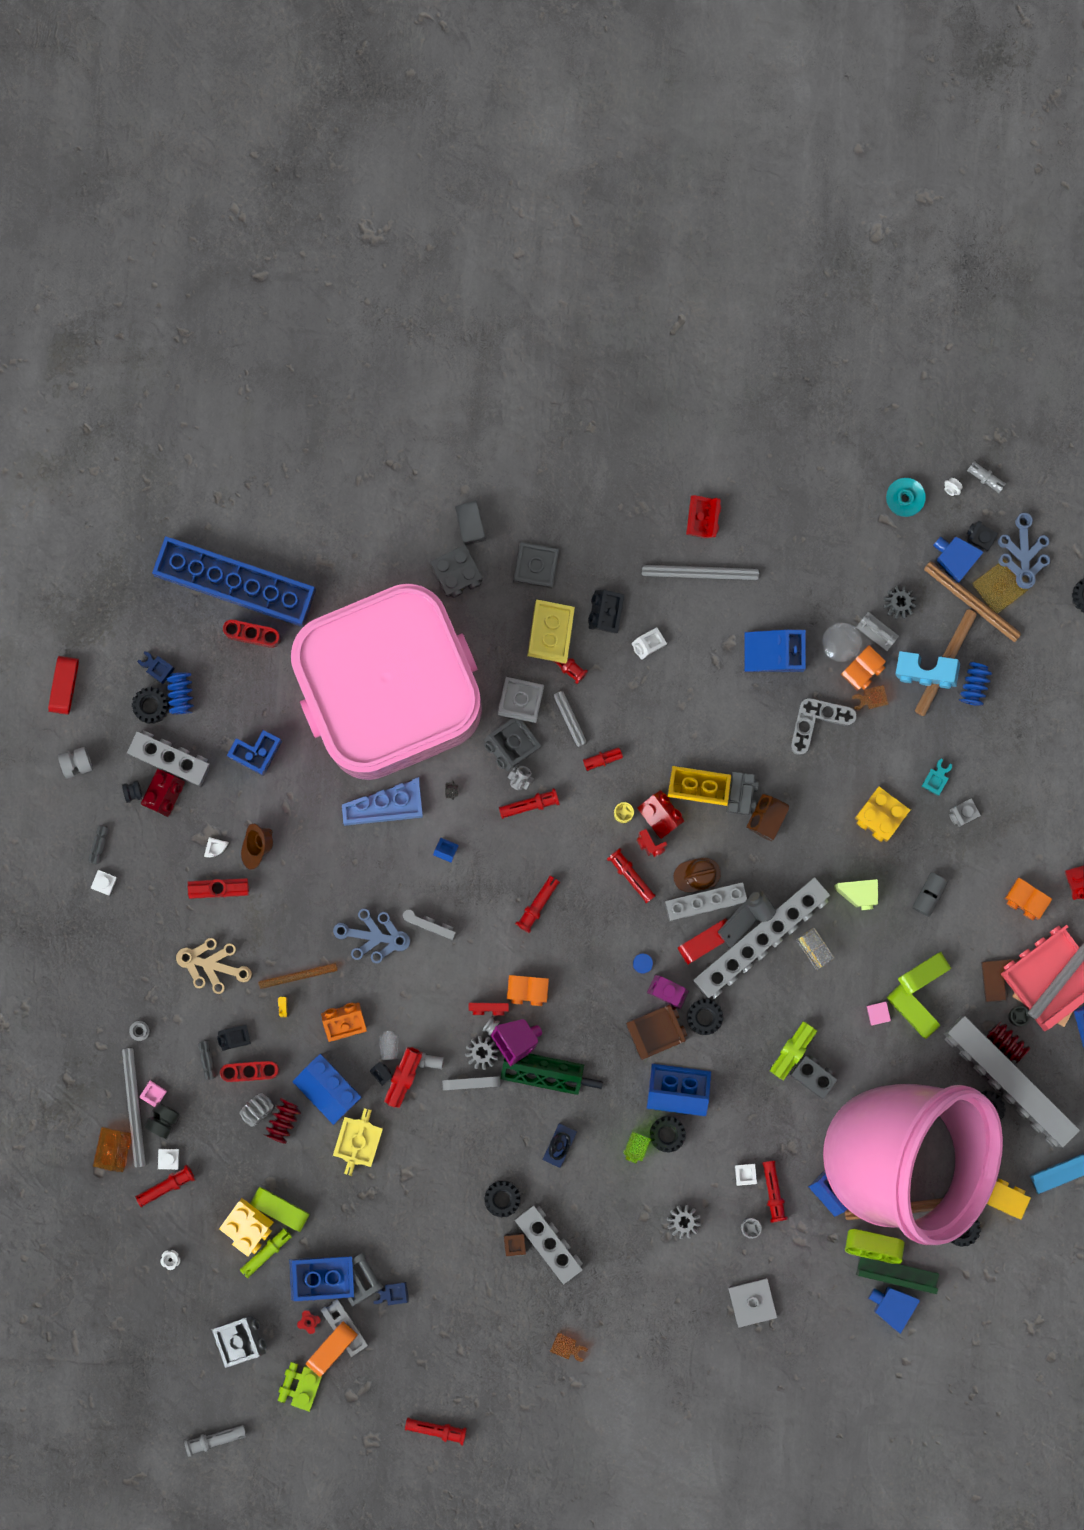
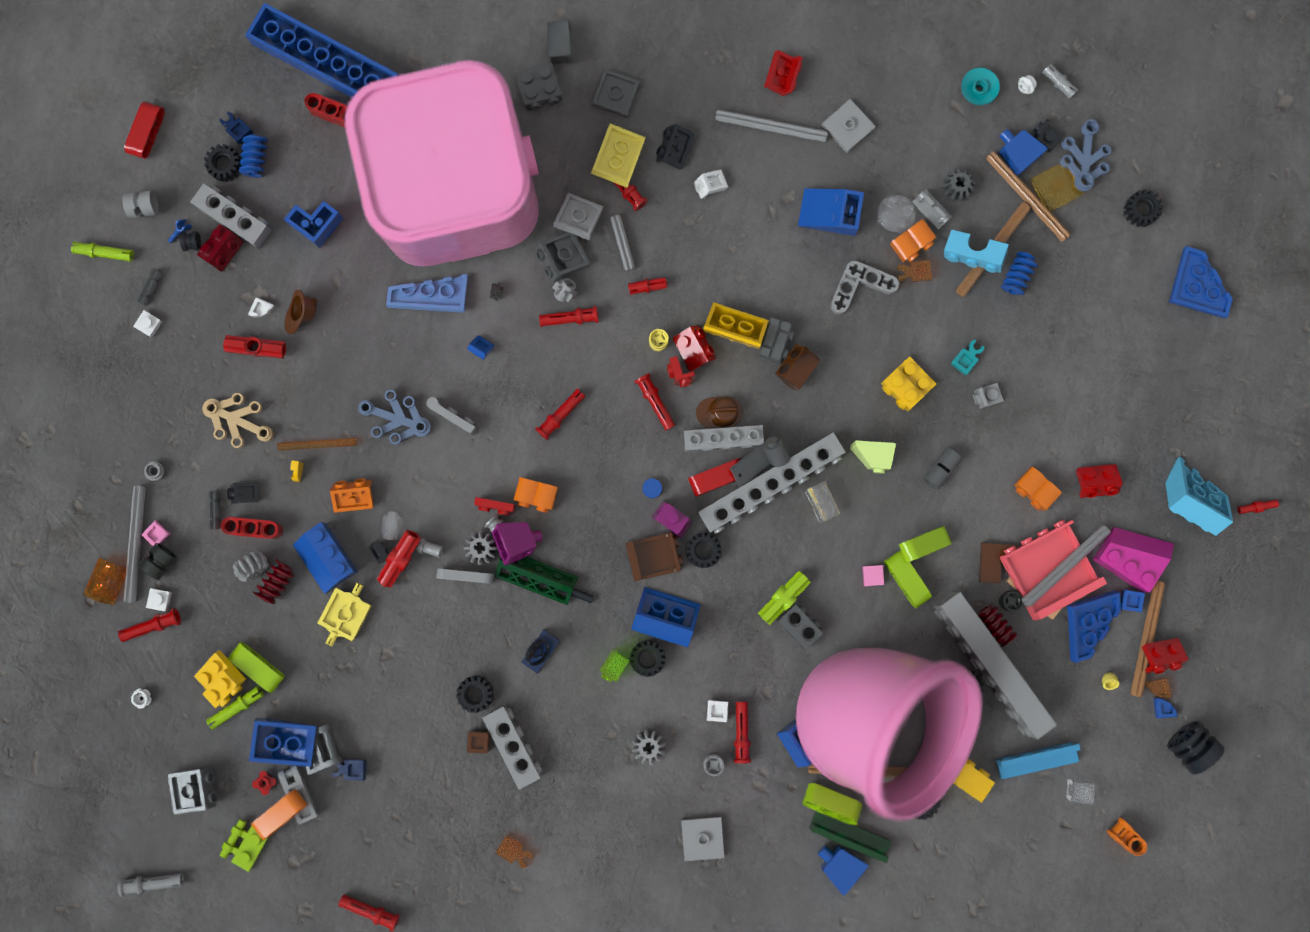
camera: 10 degrees right, 0 degrees up
(44, 817) = (94, 250): none -> lime pin
(118, 779) = (179, 228): none -> blue hand
(778, 559) = (848, 126): none -> light grey plate

